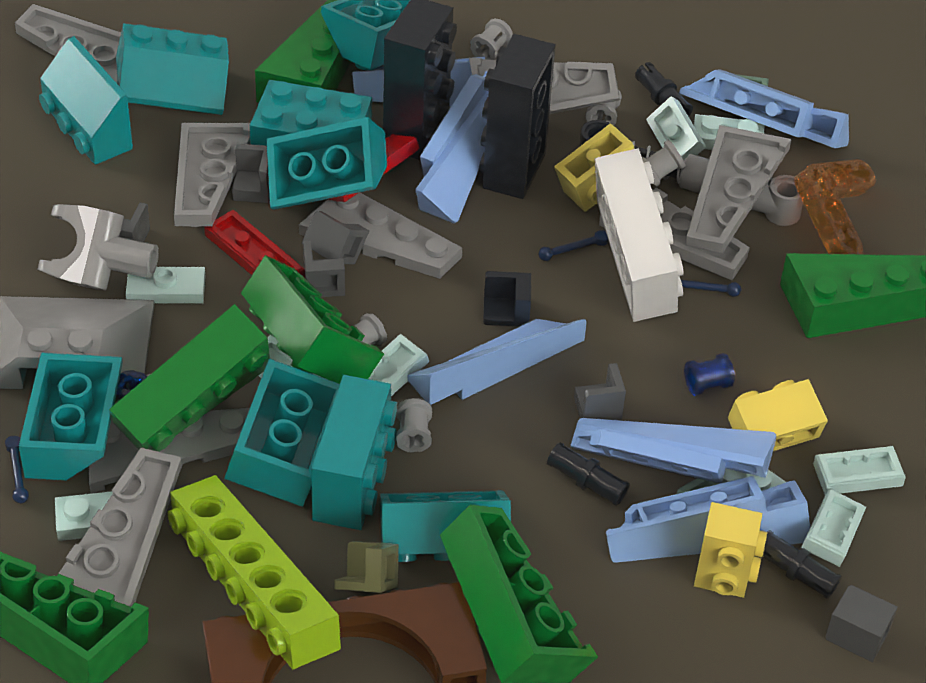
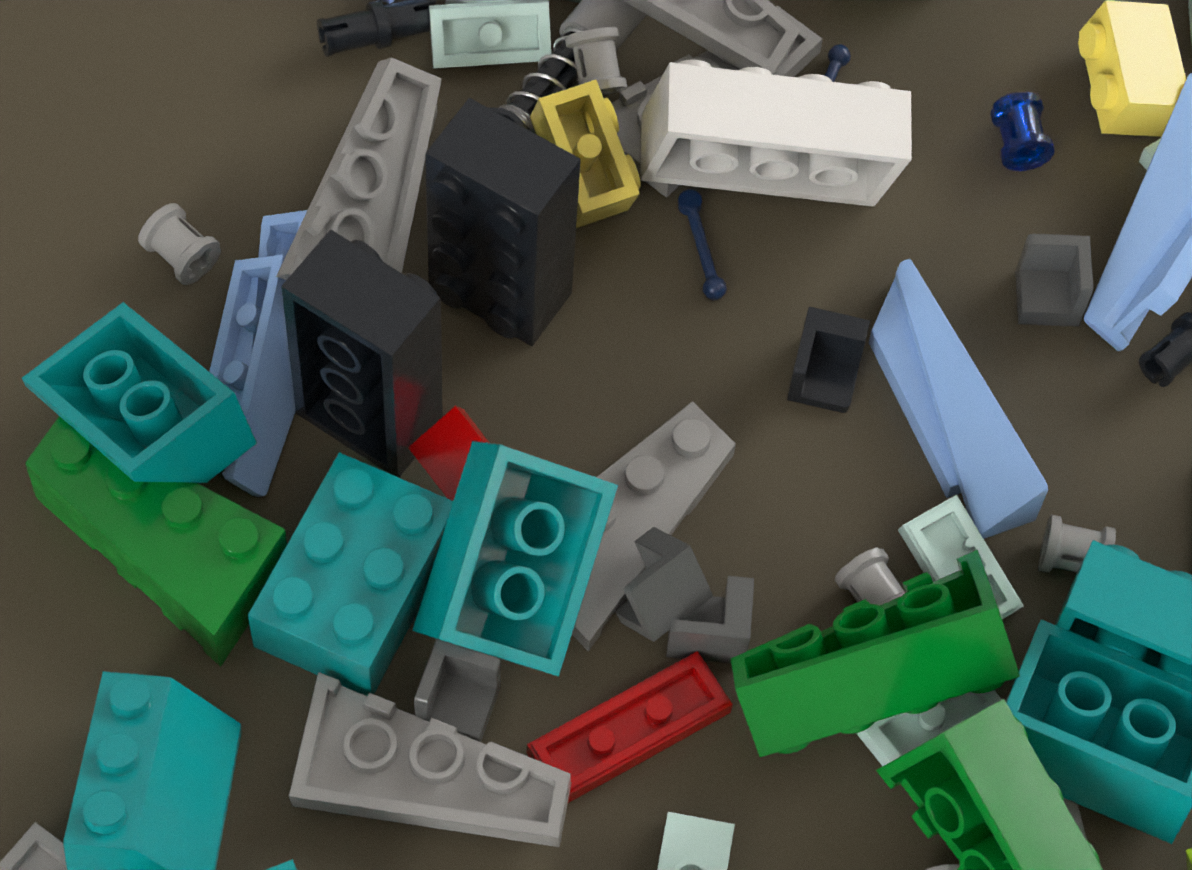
camera: 80 degrees left, 15 degrees up
(454, 154) = (498, 365): light blue wedge -> none

